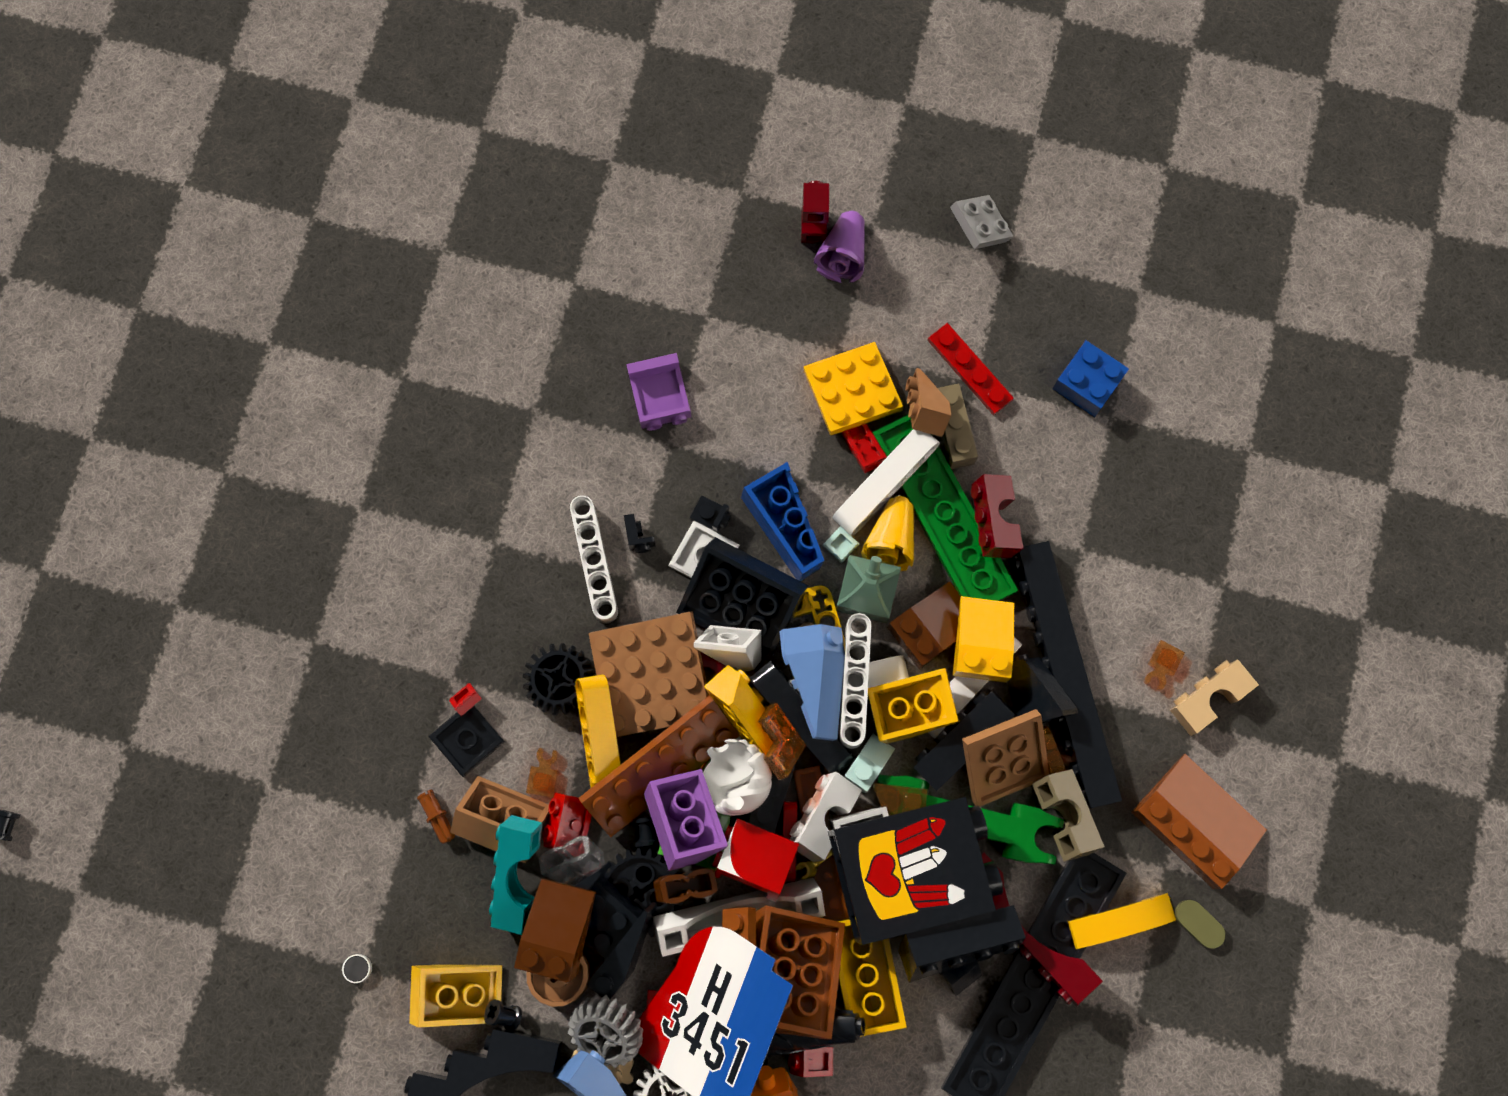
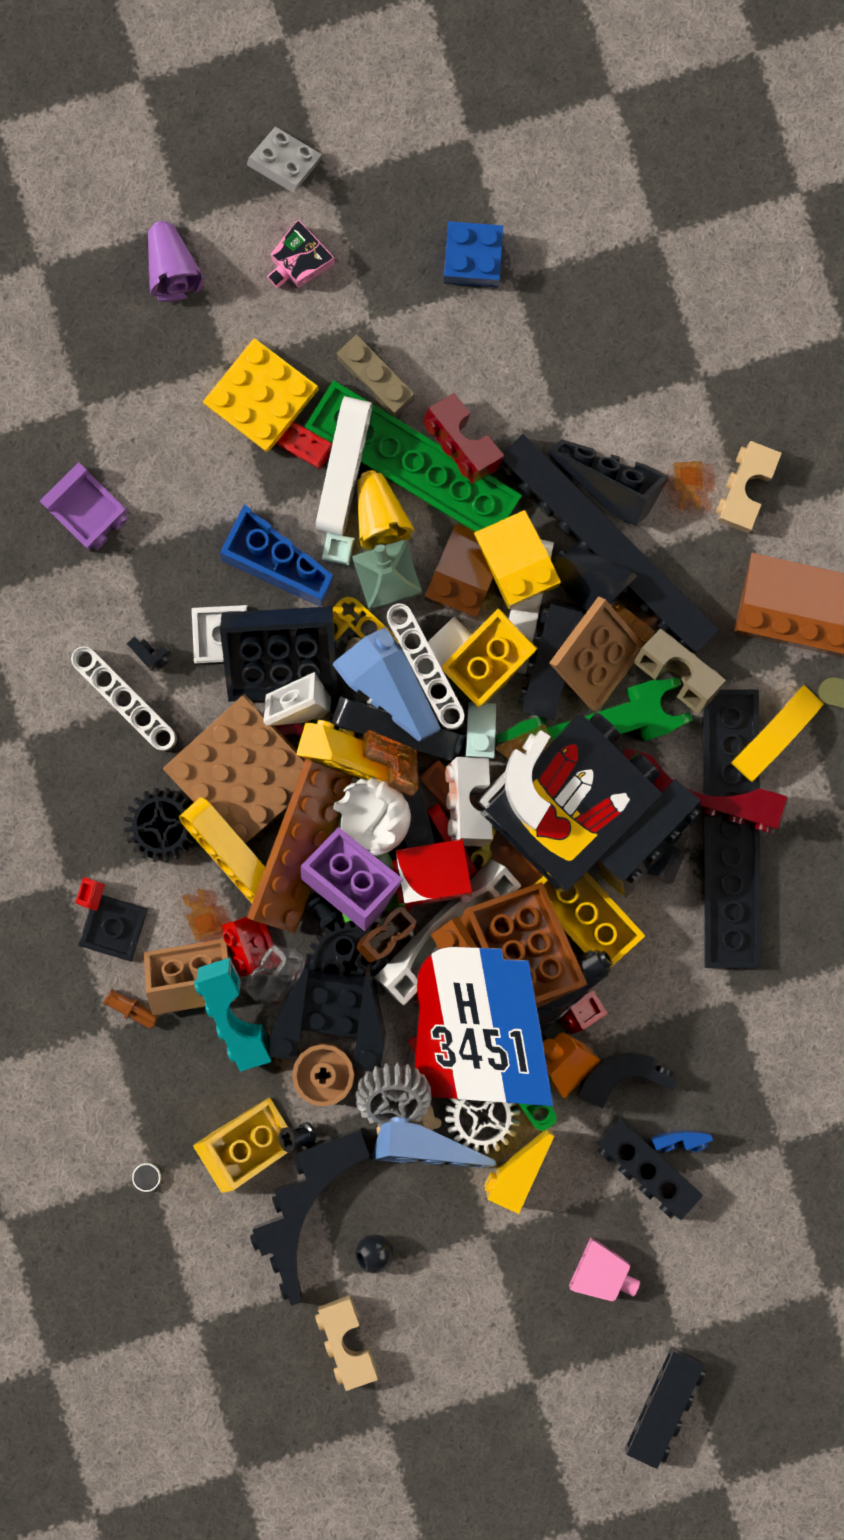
camera: 35 degrees left, 10 degrees up
(555, 931) = (299, 1039): reddish brown slope -> none
(711, 514) = (203, 593): black bracket -> none
(814, 212) = (124, 248): dark red arch -> none
(874, 830) = (518, 782): none -> white arch
(928, 406) = (341, 373): medium nougat slope -> none
(948, 301) = (299, 257): none -> torso
(970, 369) = (357, 310): red plate -> none
(1102, 633) = (618, 487): none -> black wedge

